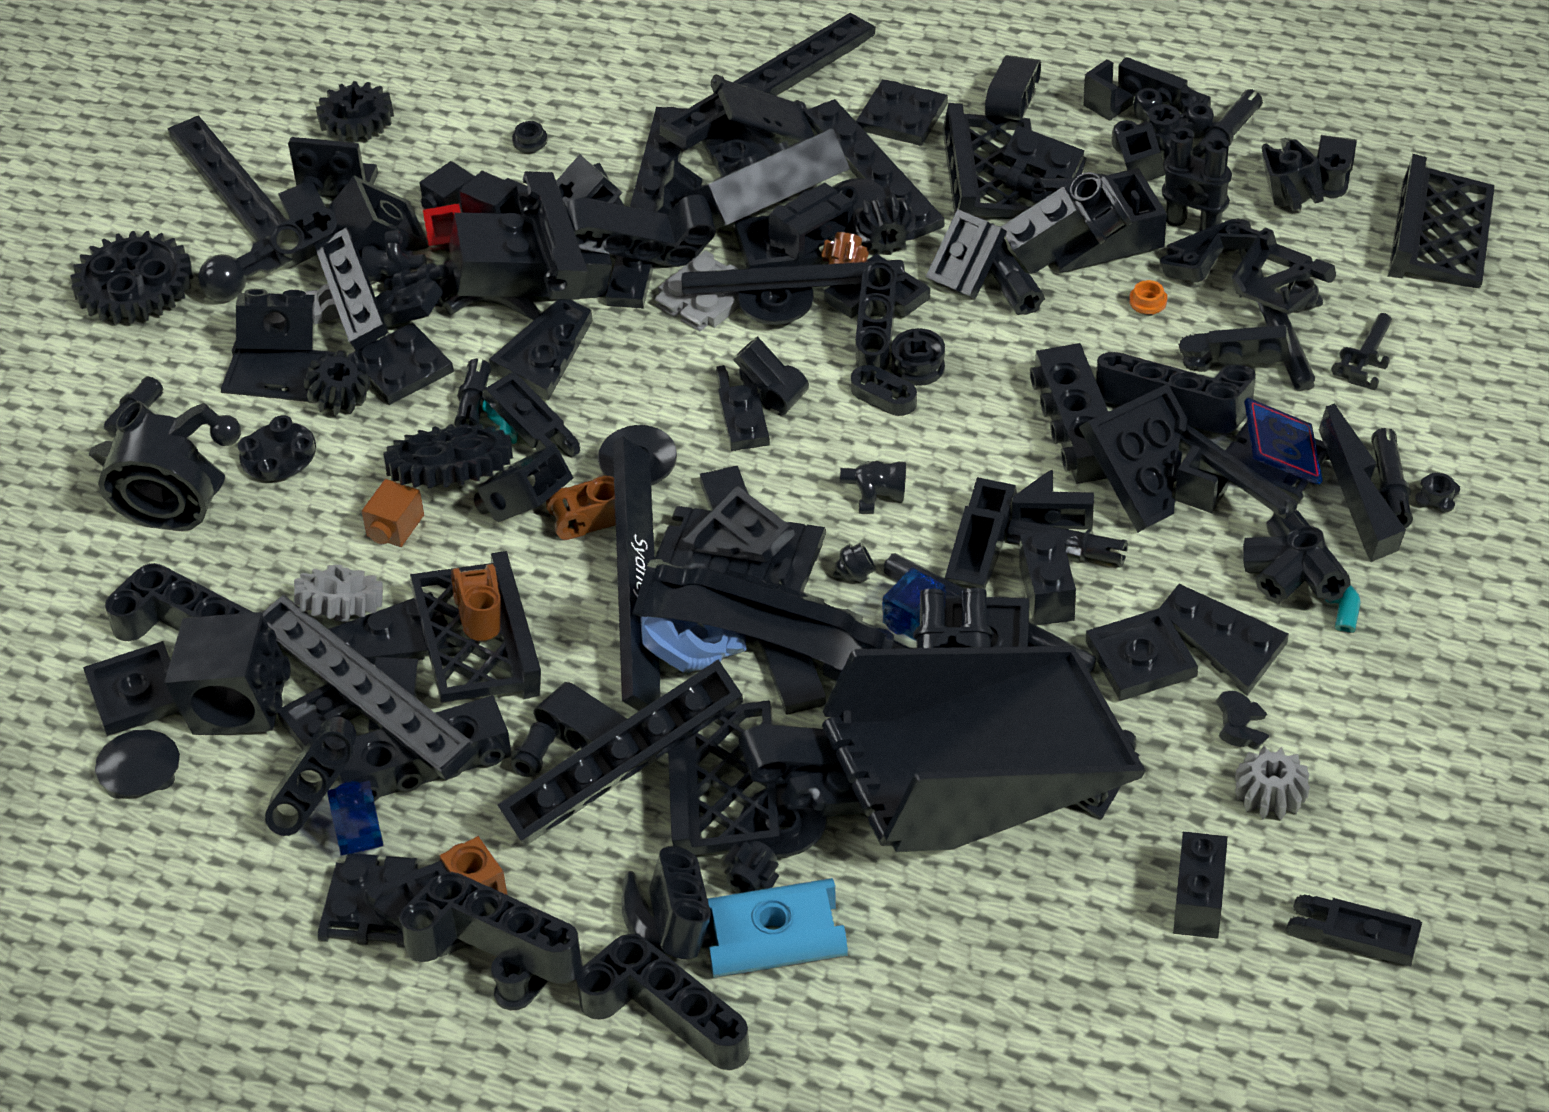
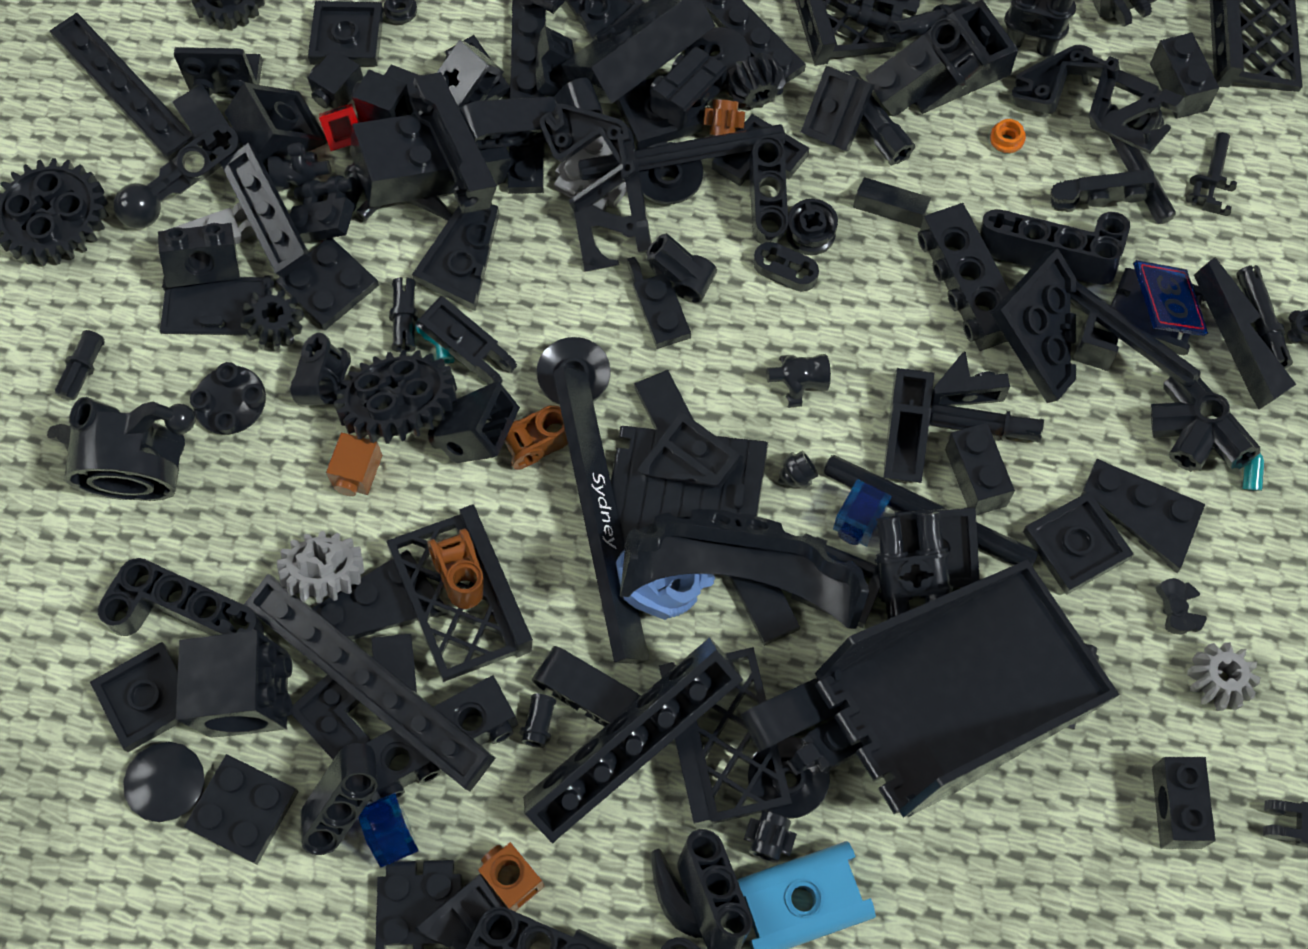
camera: 10 degrees left, 20 degrees up
(210, 794) = (241, 809): none -> black plate
(373, 431) = (320, 373): none -> black piece
(470, 147) = (347, 28): none -> black plate
(671, 243) = (570, 131): none -> black piece
(1005, 344) = (891, 202): none -> black slope
(1350, 250) = (1184, 70): none -> black brick

